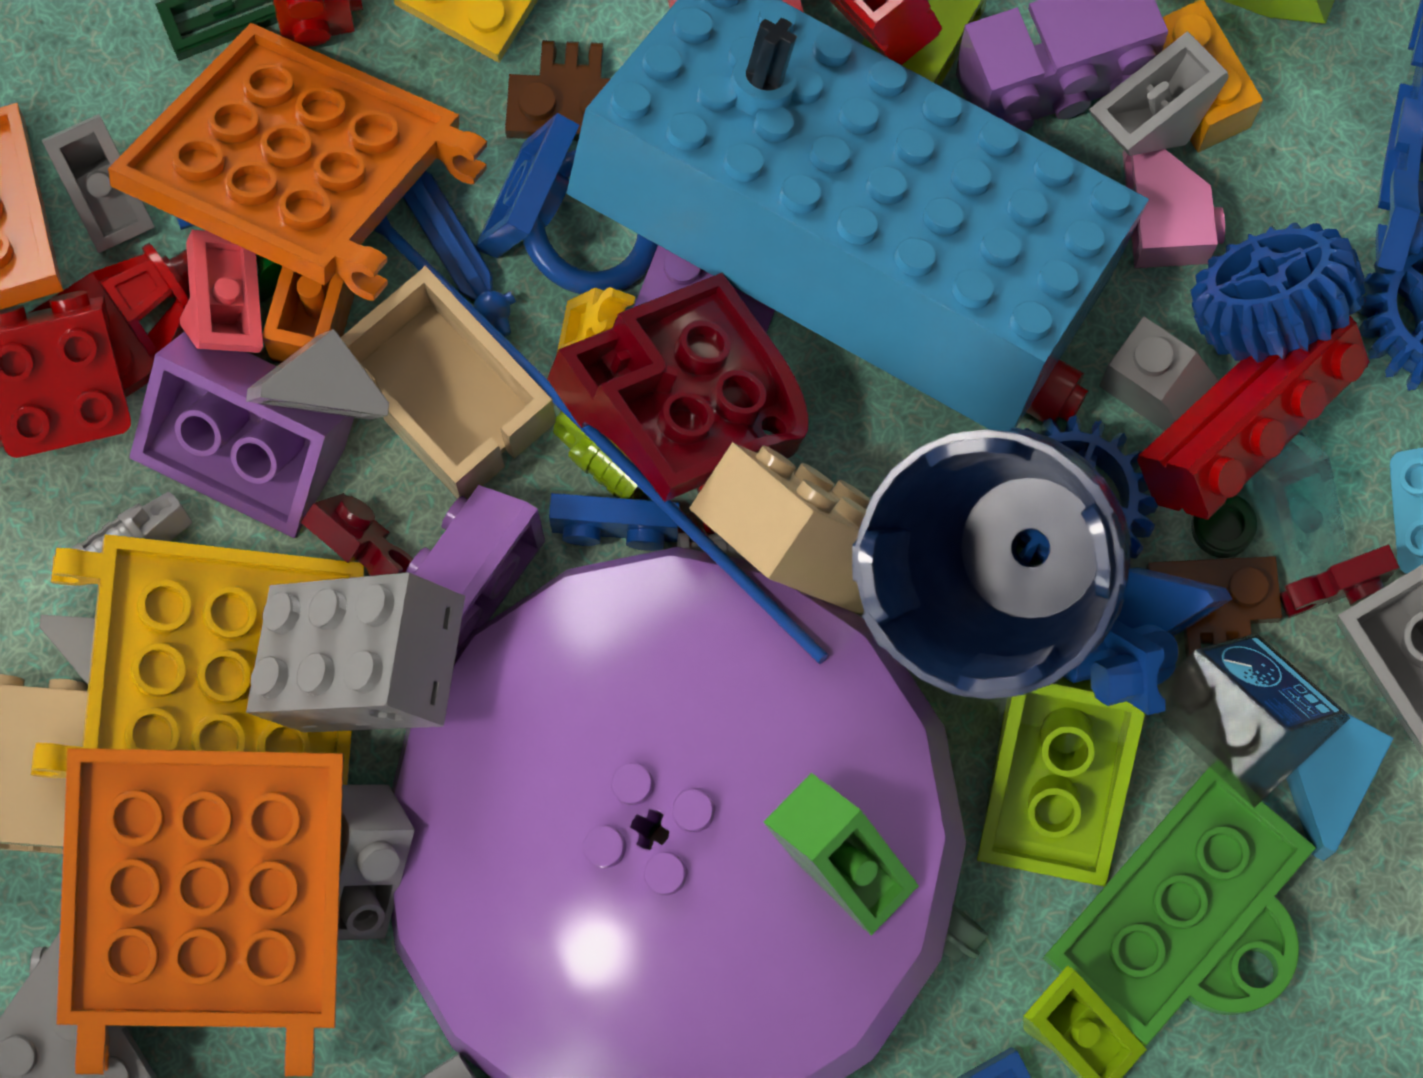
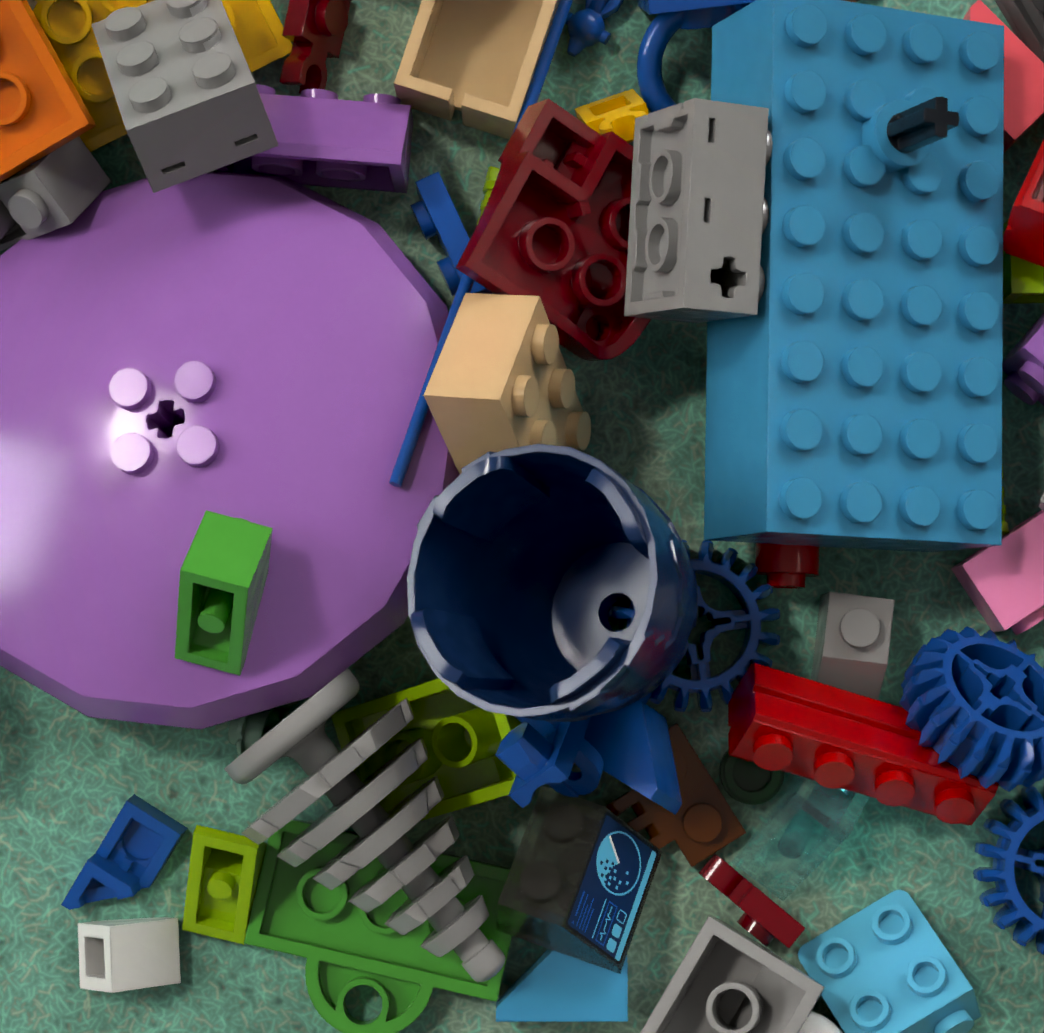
camera: 60 degrees right, 10 degrees up
(734, 277) = (697, 212): none -> light grey piece
(1094, 852) = (379, 832): none -> light grey plant

